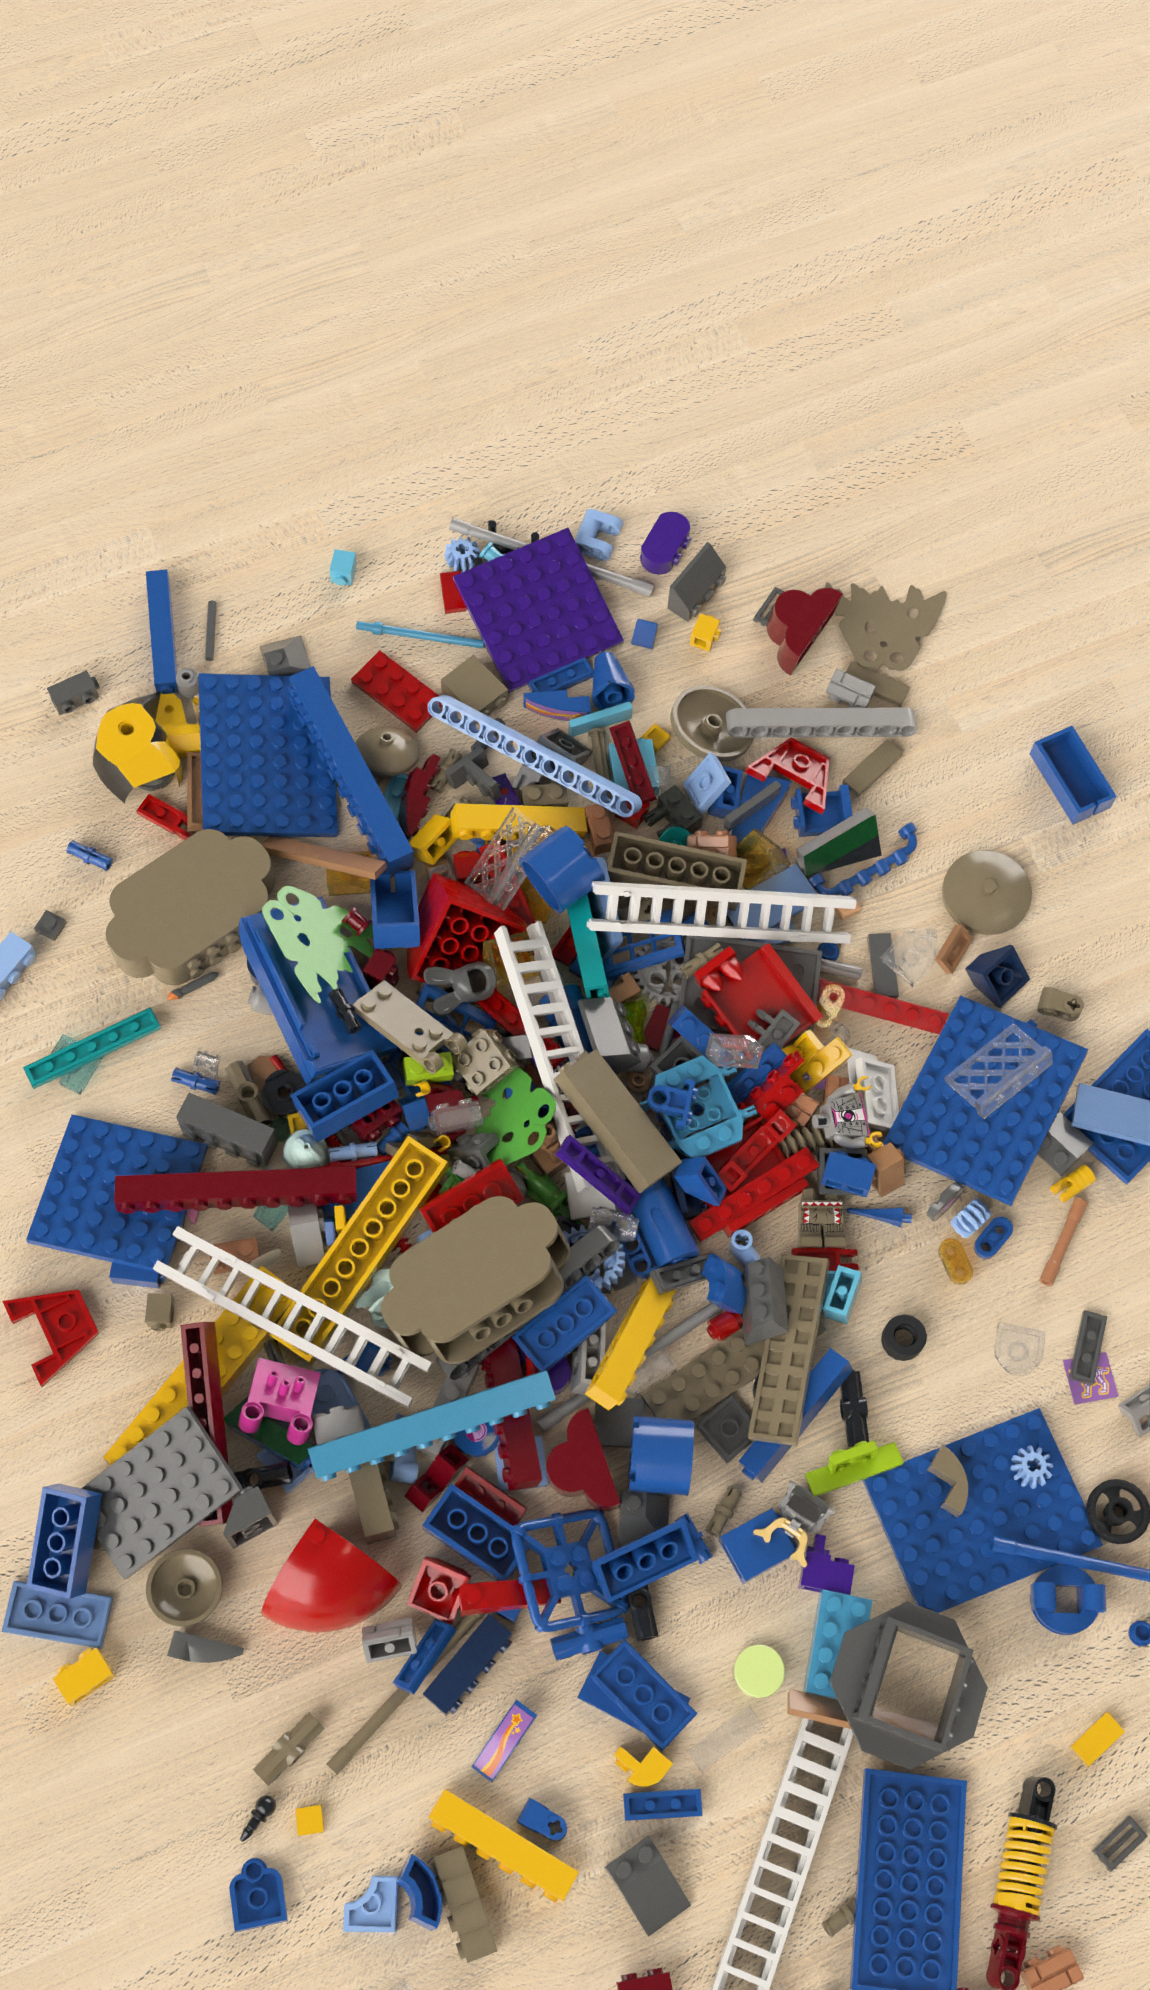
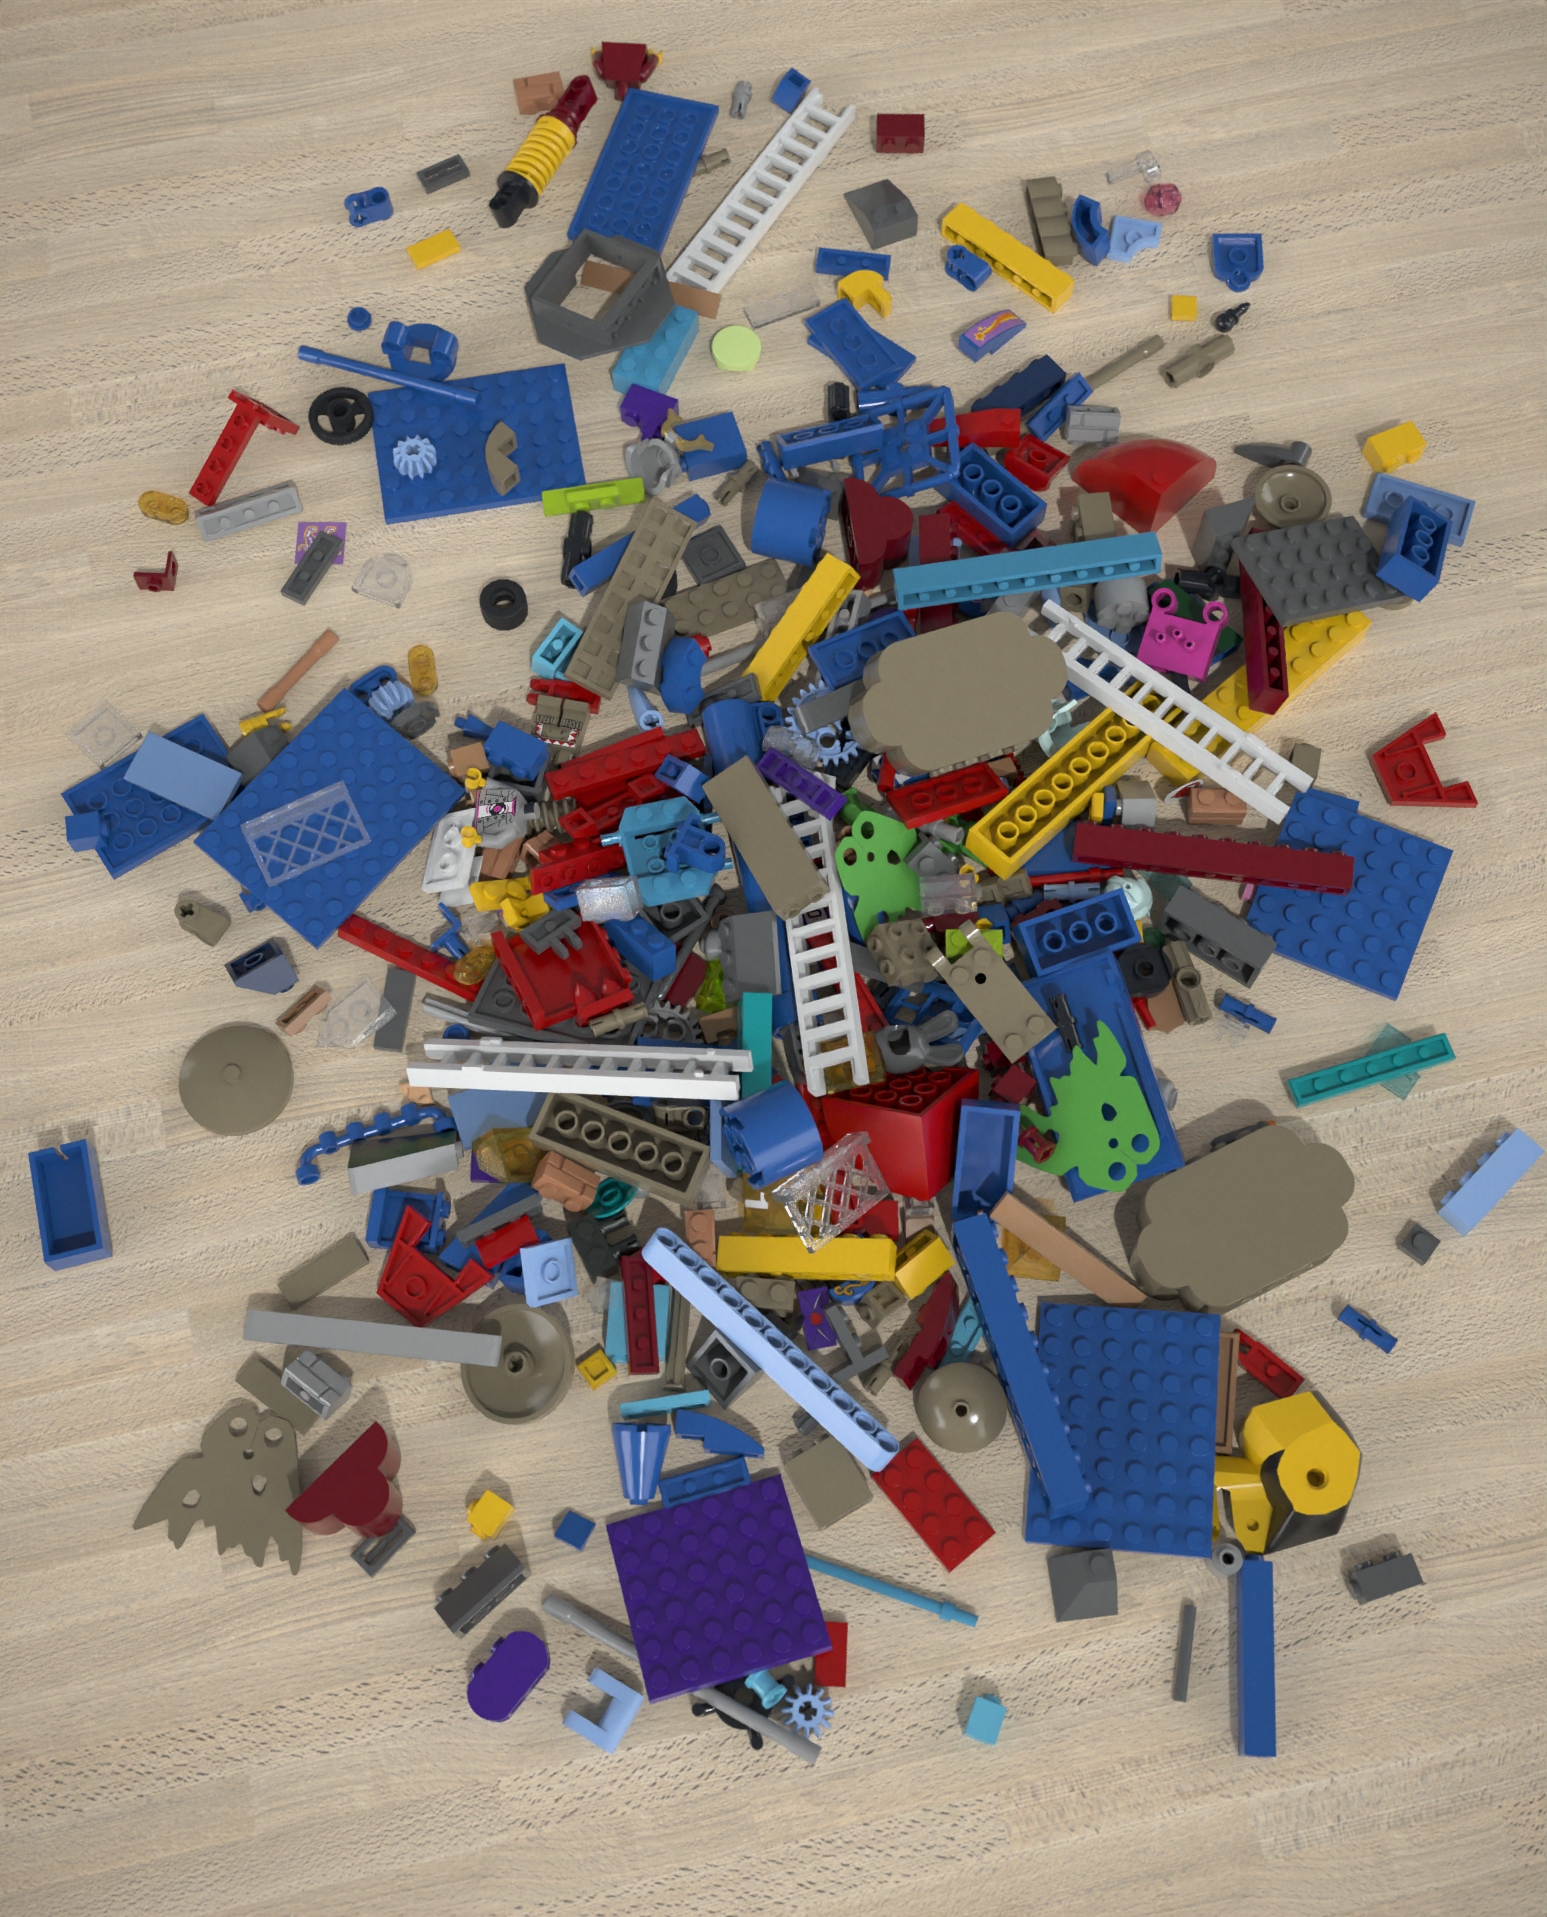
camera: 165 degrees left, 0 degrees up
(345, 1961) = (1163, 199): none -> clear pink head
(741, 792) = (507, 1241): none -> red tile
(857, 1025) = (450, 938): none -> blue bracket

